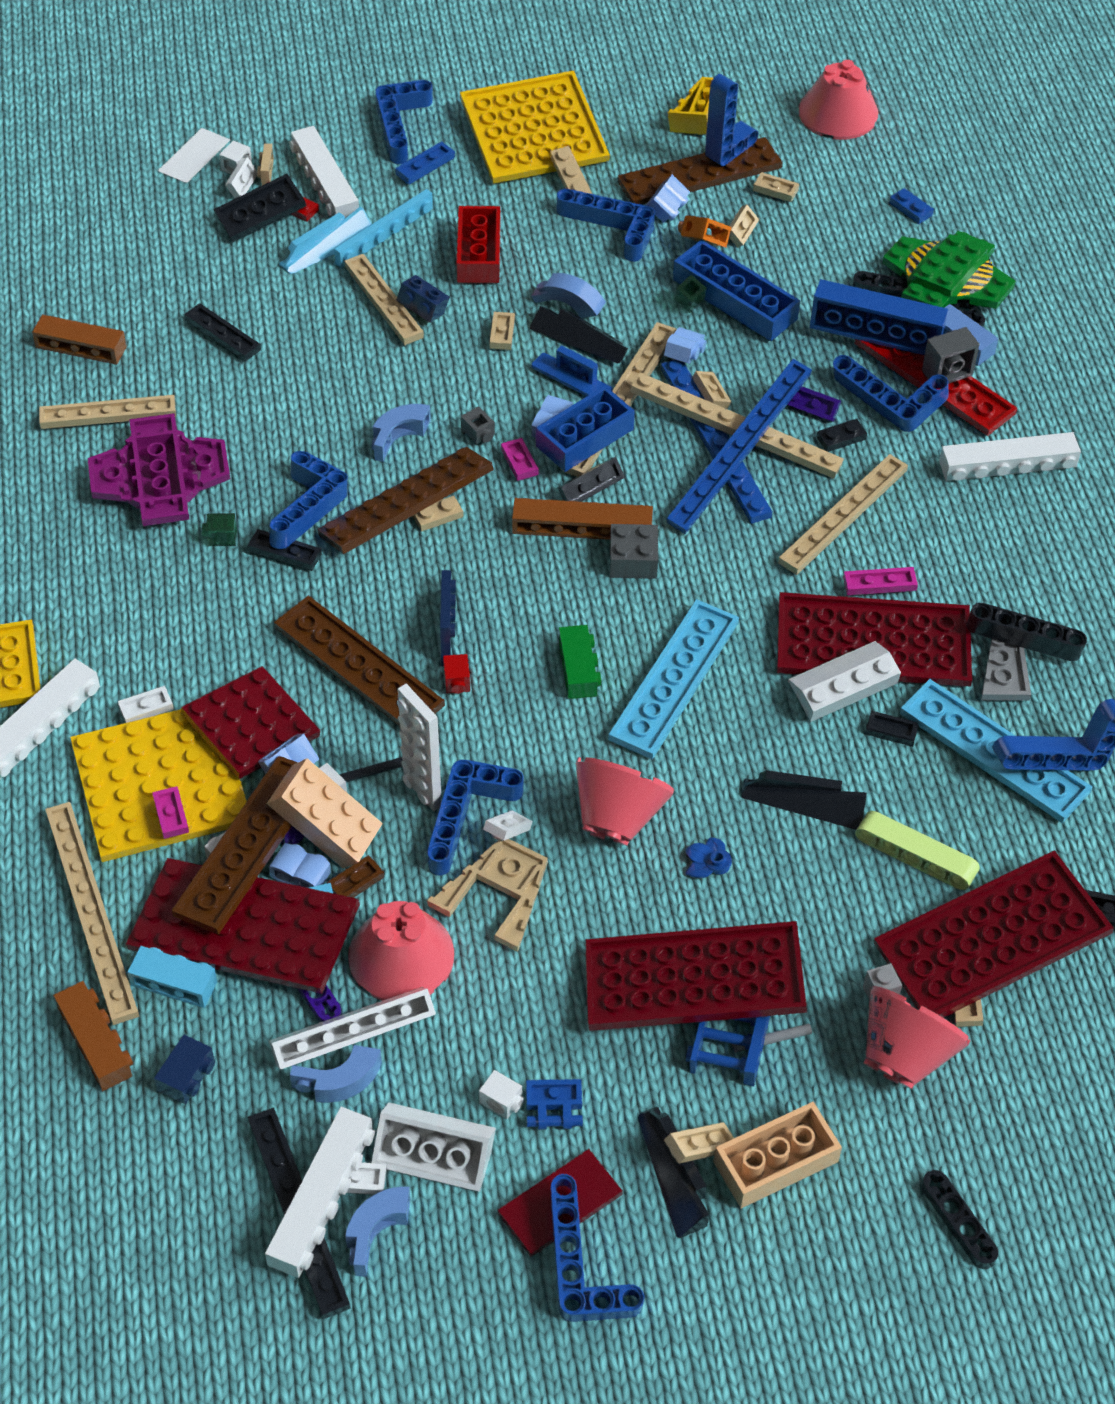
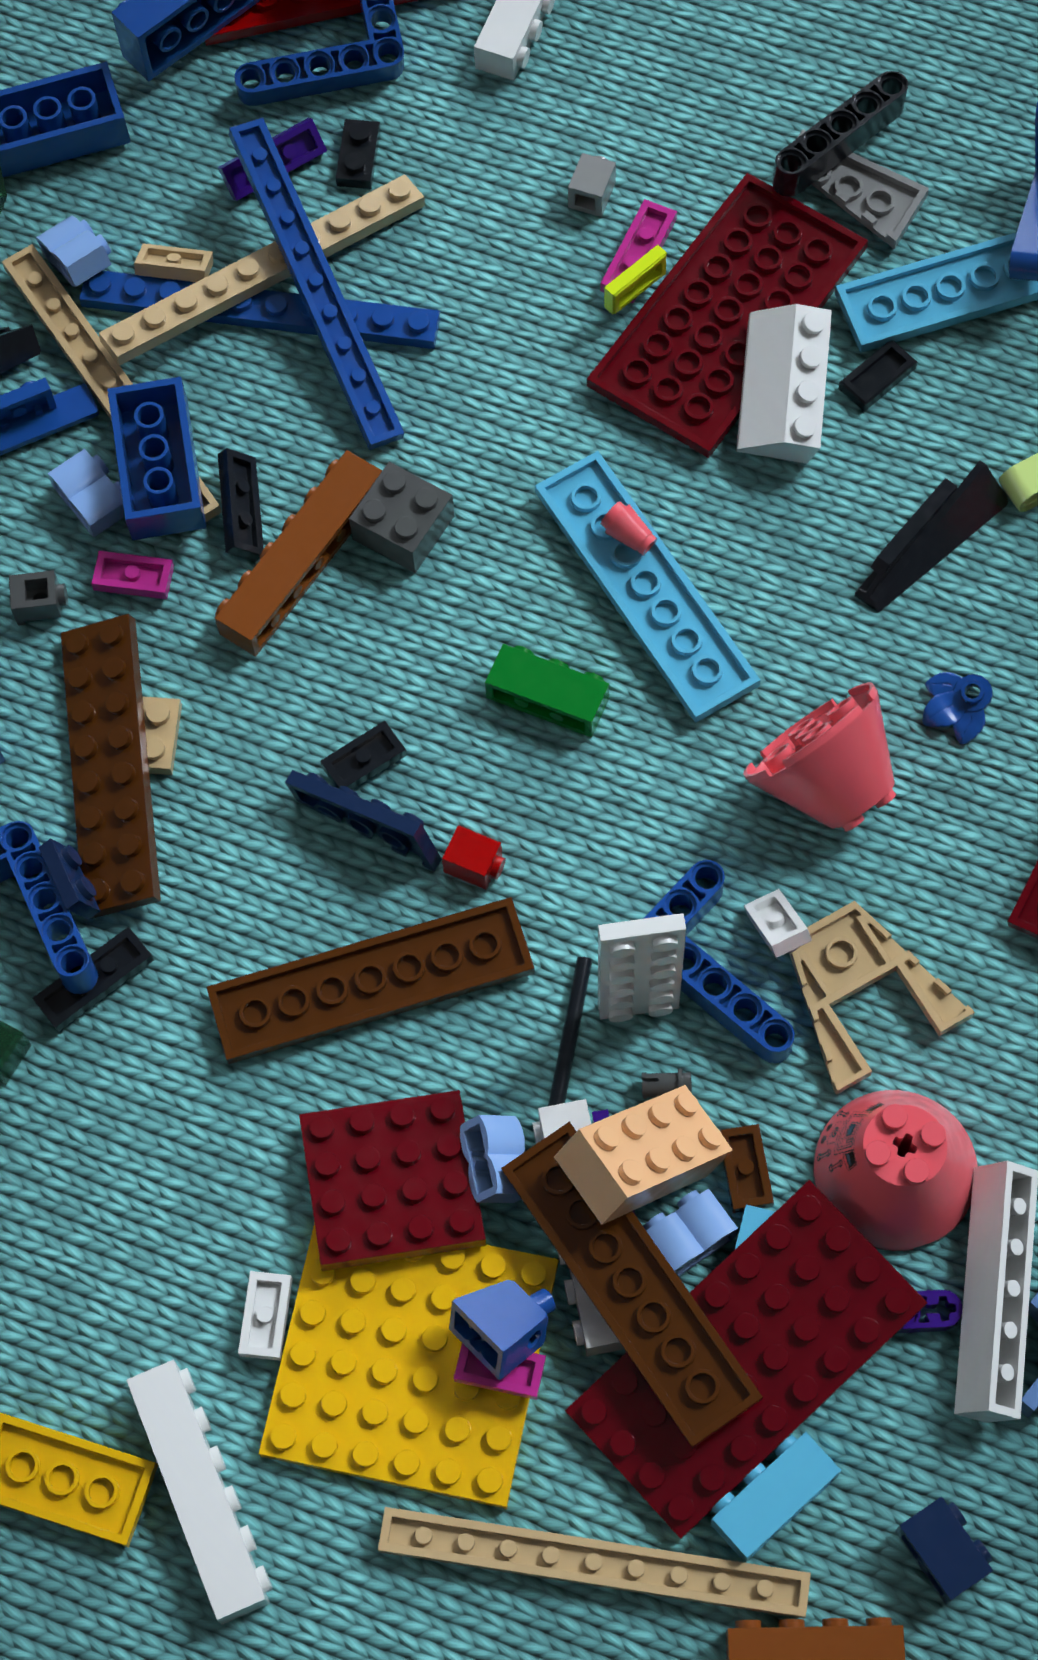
camera: 55 degrees left, 15 degrees up
(192, 797) = (502, 1324): none -> torso
(327, 508) = (69, 879): none -> dark blue plate
(388, 827) = (659, 1083): none -> dark grey pin
(483, 602) = (364, 757): none -> black plate
(698, 646) = (628, 528): none -> coral cone
(842, 514) = (499, 230): tan plate -> none
(853, 580) = (635, 280): none -> neon yellow tile
(904, 540) = (592, 184): none -> light grey brick

